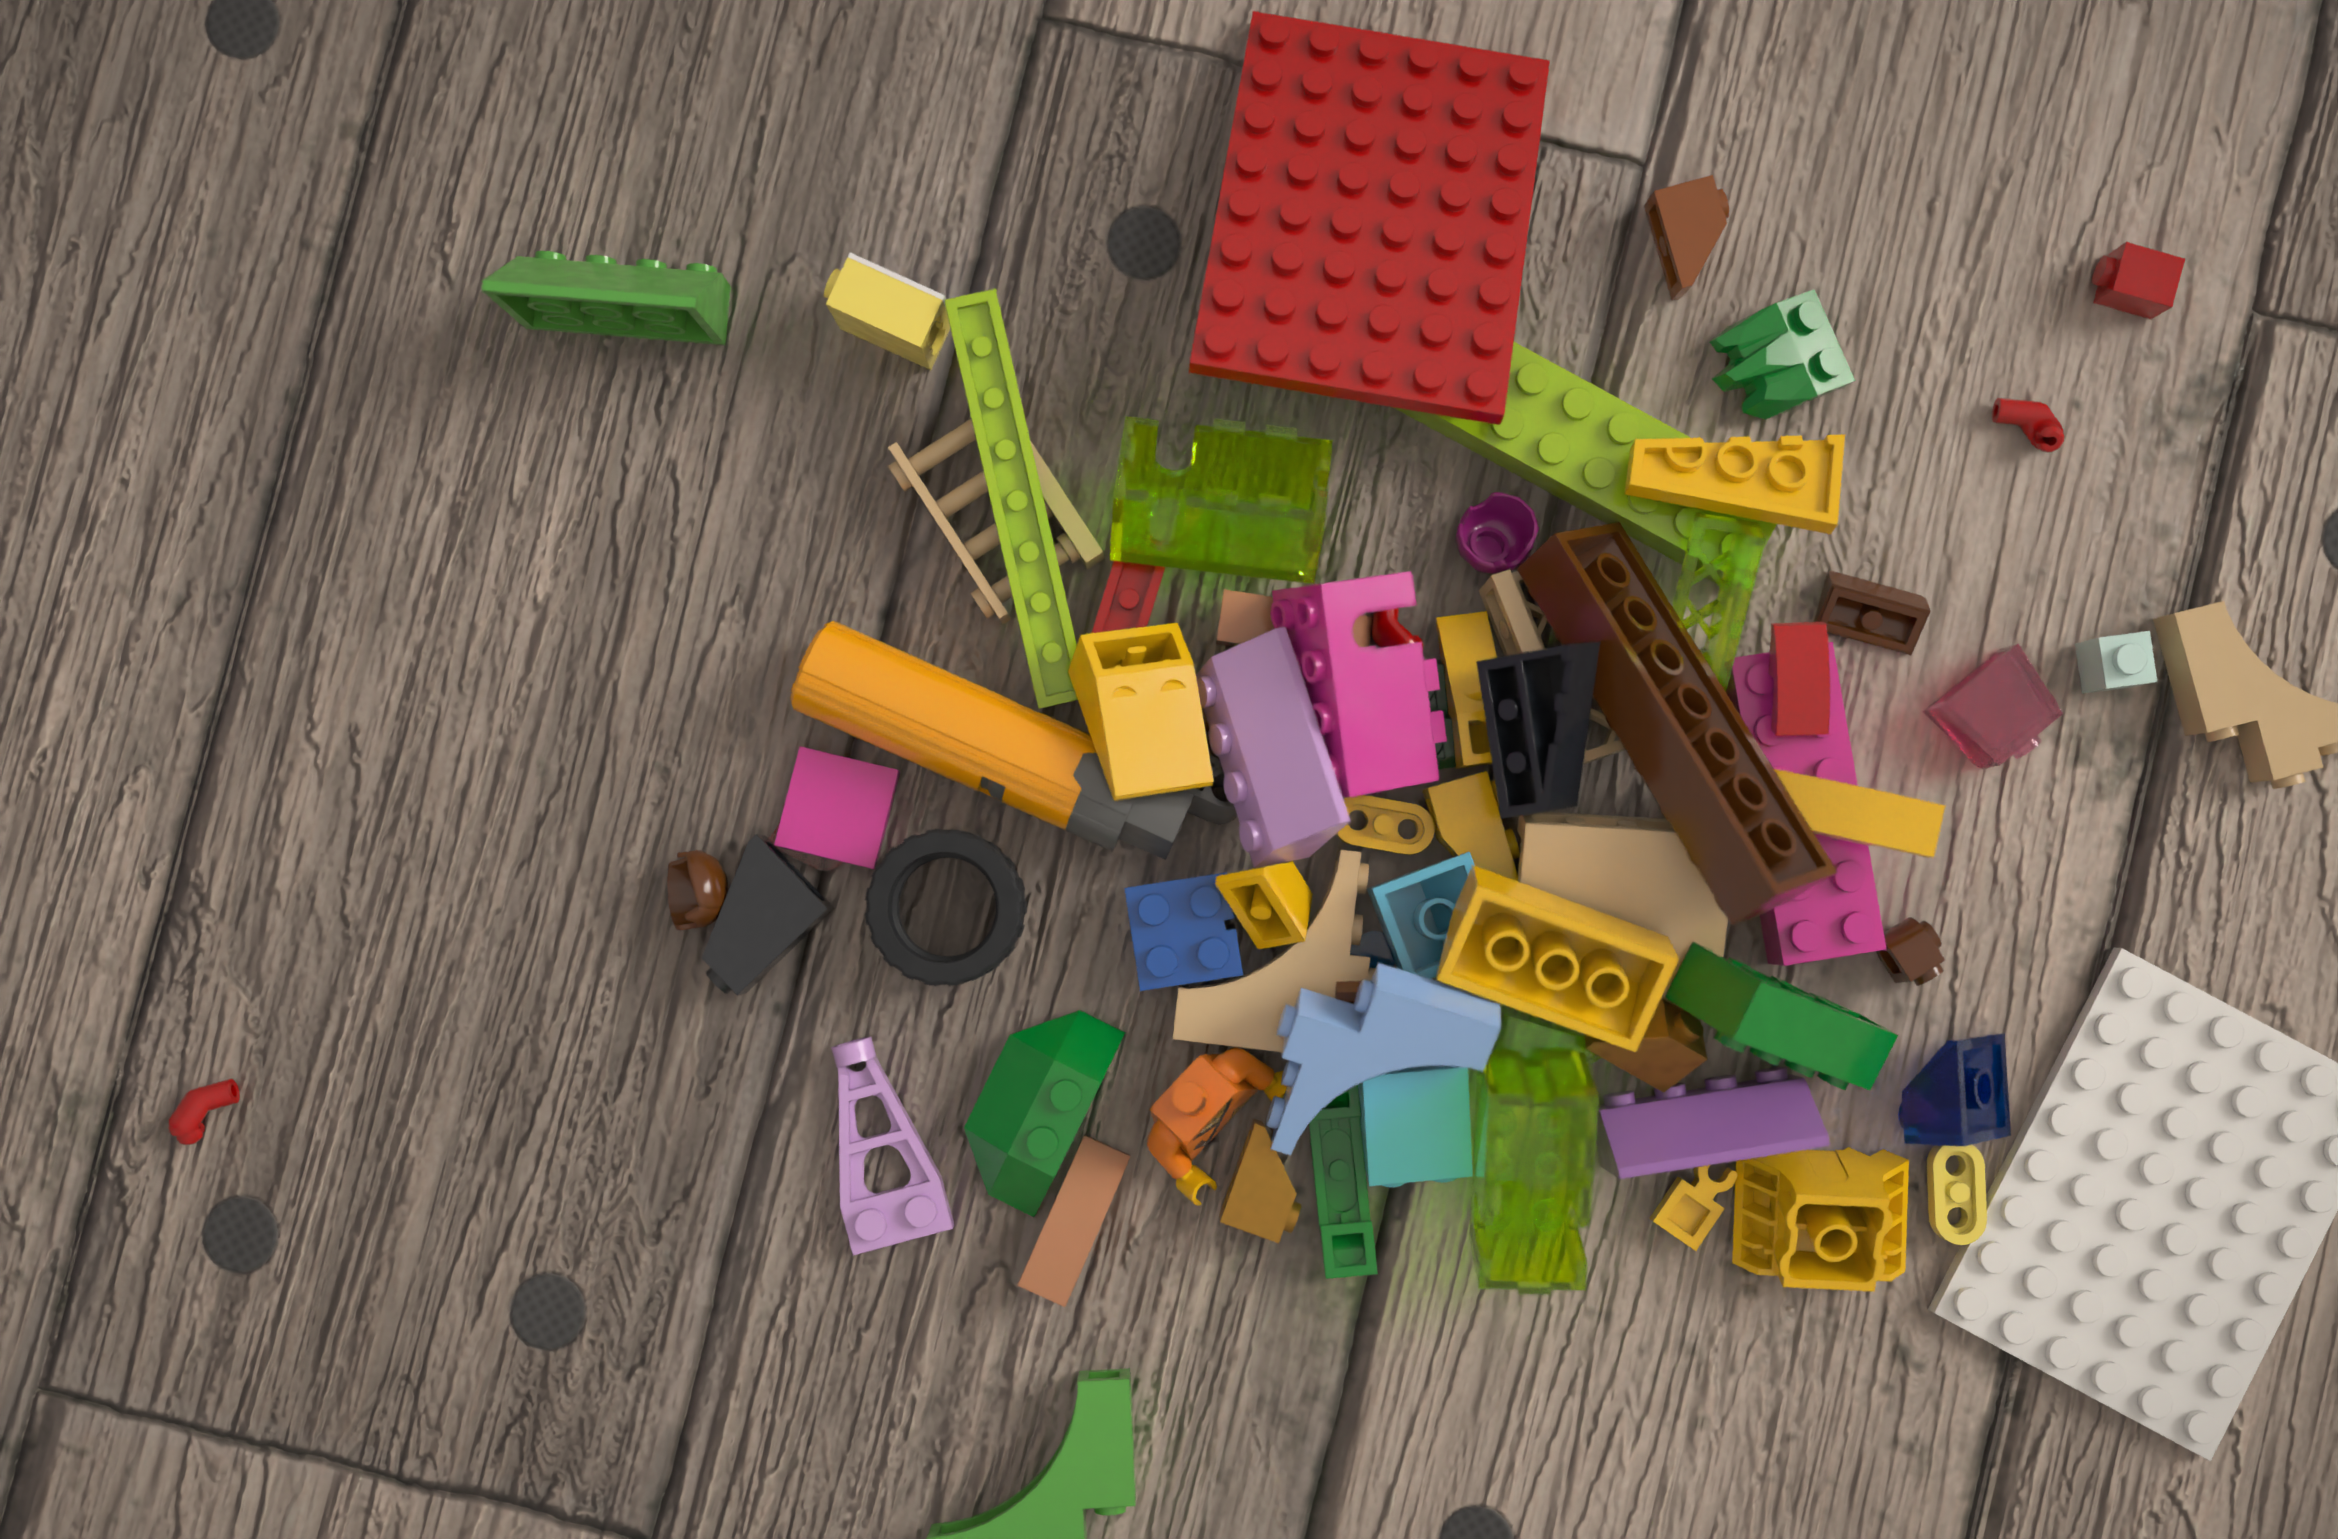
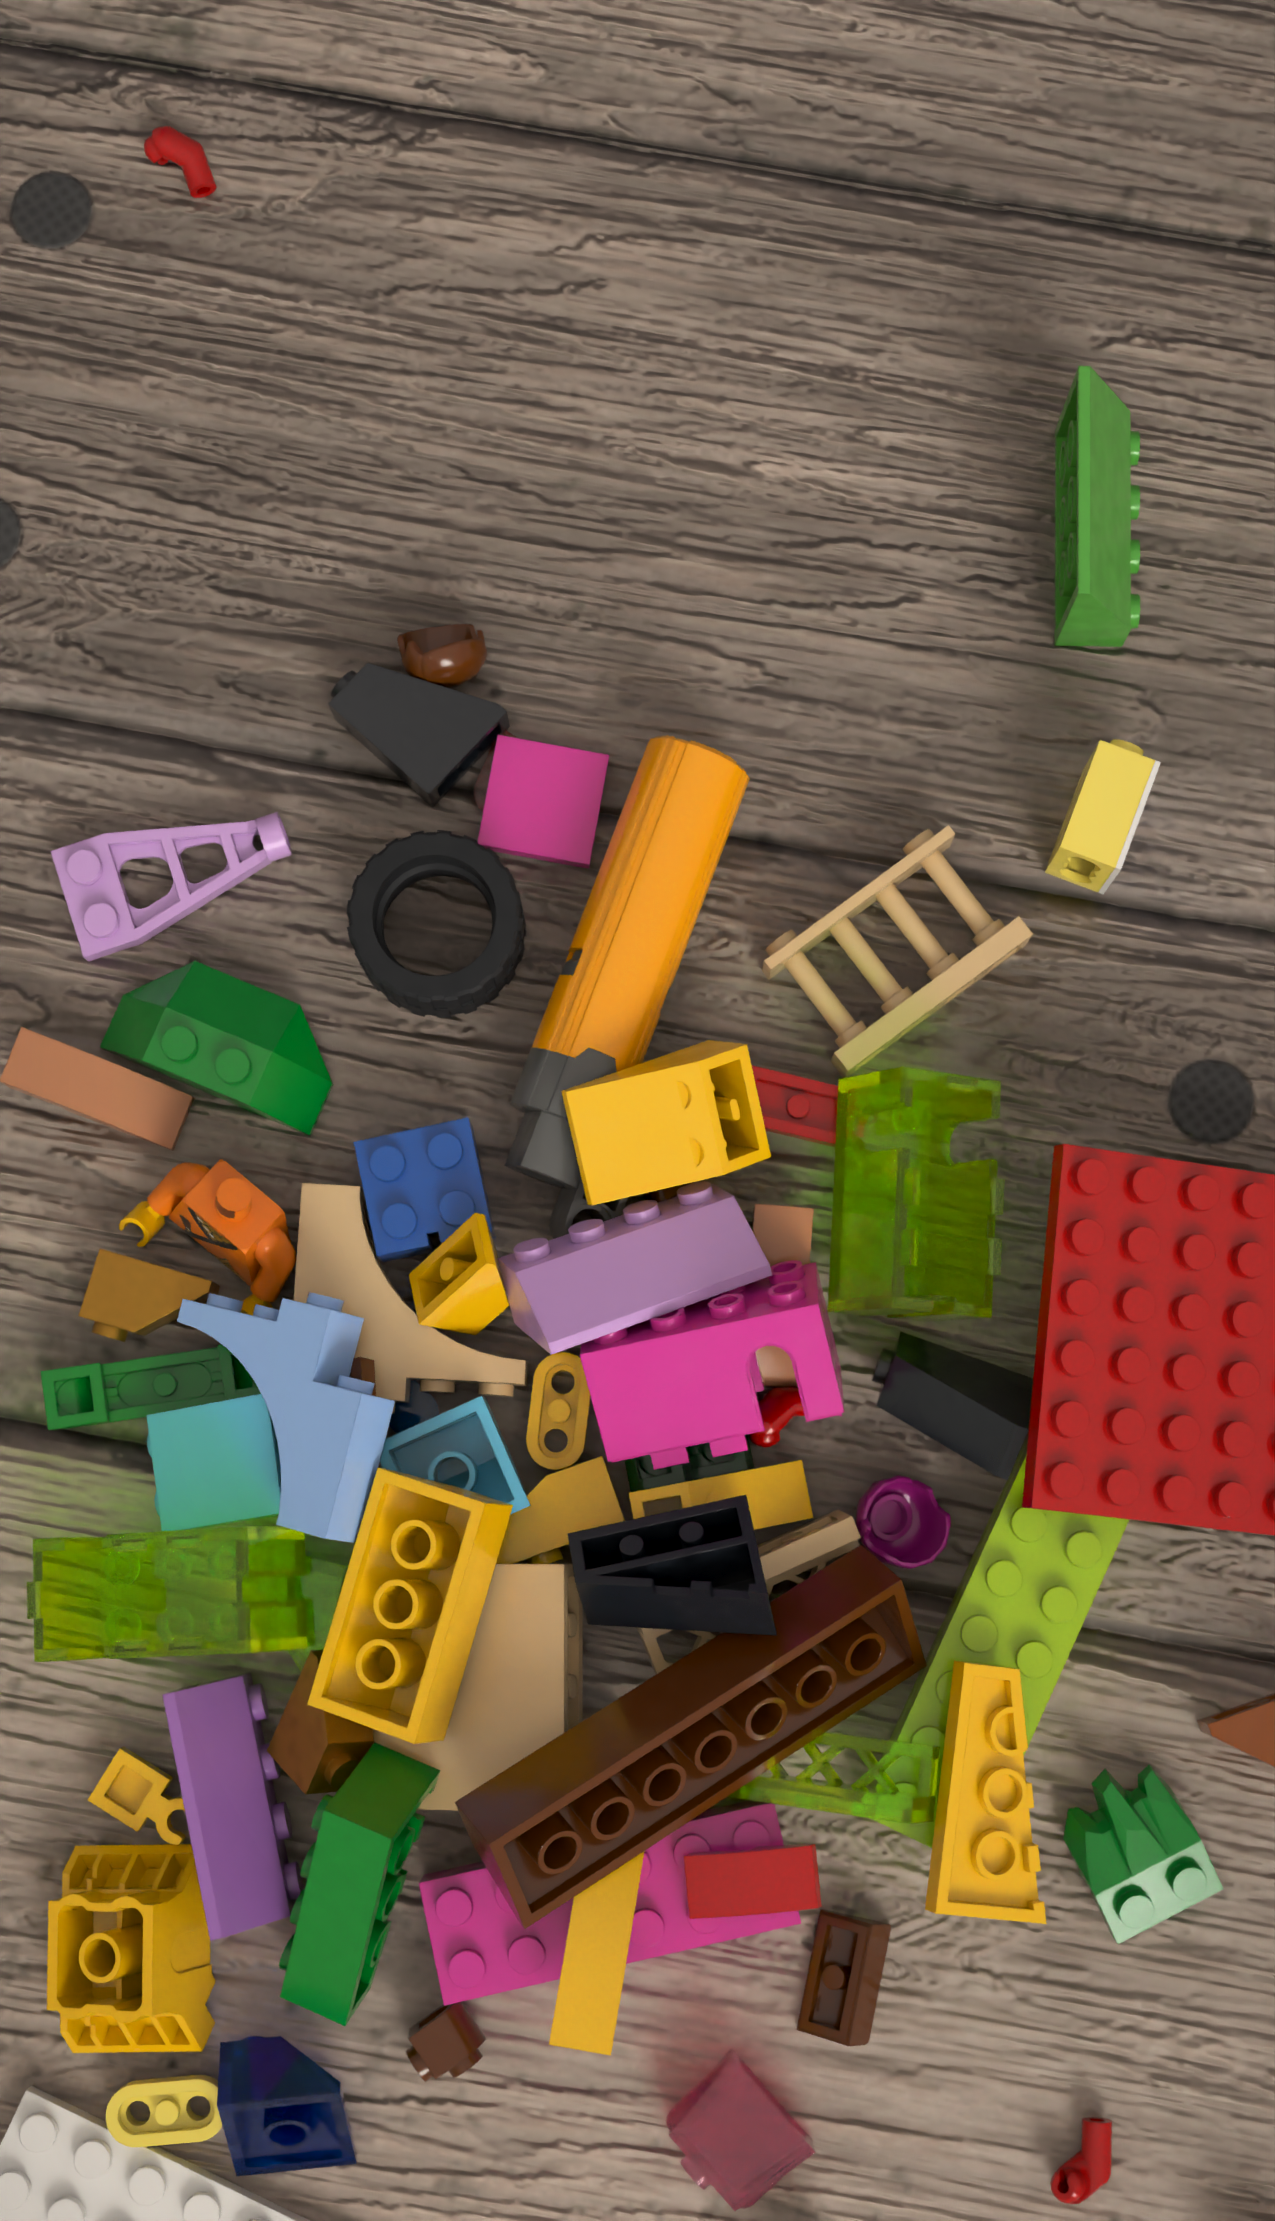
camera: 90 degrees right, 5 degrees down
(1014, 493) = (907, 965): lime plate -> none
(1397, 477) = (956, 1401): none -> black slope

